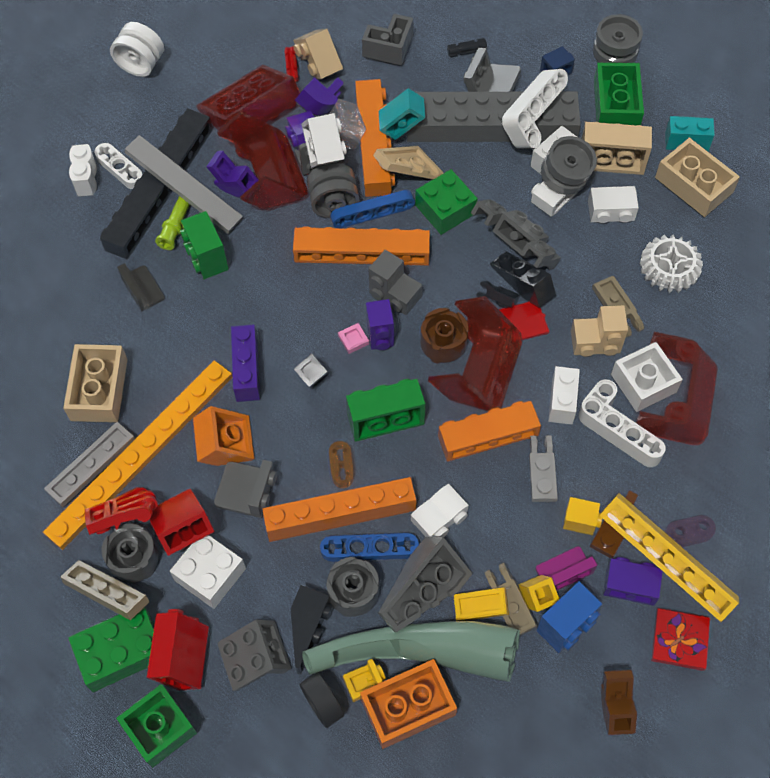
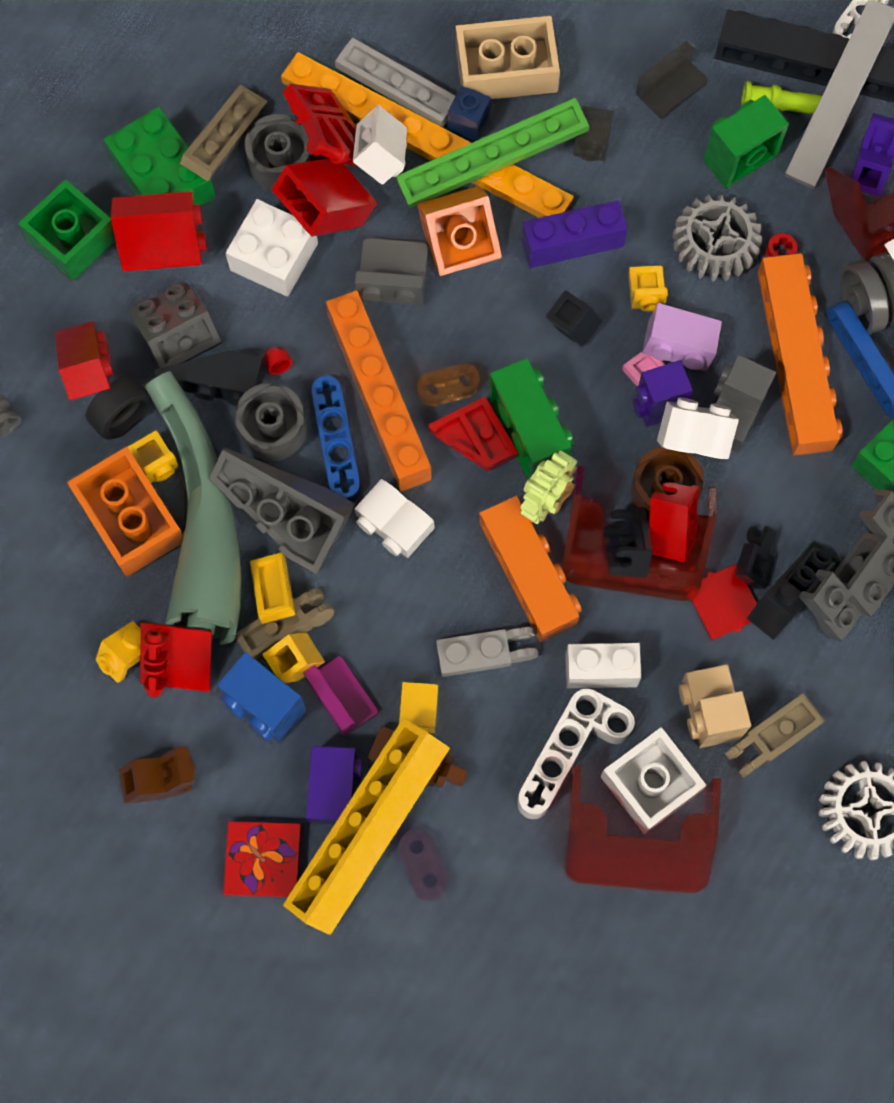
camera: 80 degrees right, 10 degrees up
(132, 416) = (469, 113): none -> dark blue brick
(146, 476) = (380, 145): none -> white brick
(169, 339) = (594, 143): none -> clear smoke brick
(173, 403) = (492, 153): none -> bright green plate
(269, 285) = (697, 224): none -> light grey gear
(280, 719) = (83, 360): none -> red brick
(283, 237) = (781, 239): none -> red bush
(295, 325) = (647, 287): none -> yellow bracket
(298, 578) = (277, 360): none -> red hinge
(338, 309) = (682, 336): none -> lavender brick
(384, 450) = (475, 435): none -> red wing
(413, 304) = (698, 428): none -> white brick
(442, 399) = (548, 487): none -> yellowish green gear
(476, 329) = (674, 521): none -> red hinge
(484, 361) = (628, 545): none -> black hinge
(516, 721) = (120, 651): none -> yellow bracket
(529, 681) = (174, 658): none -> red hinge

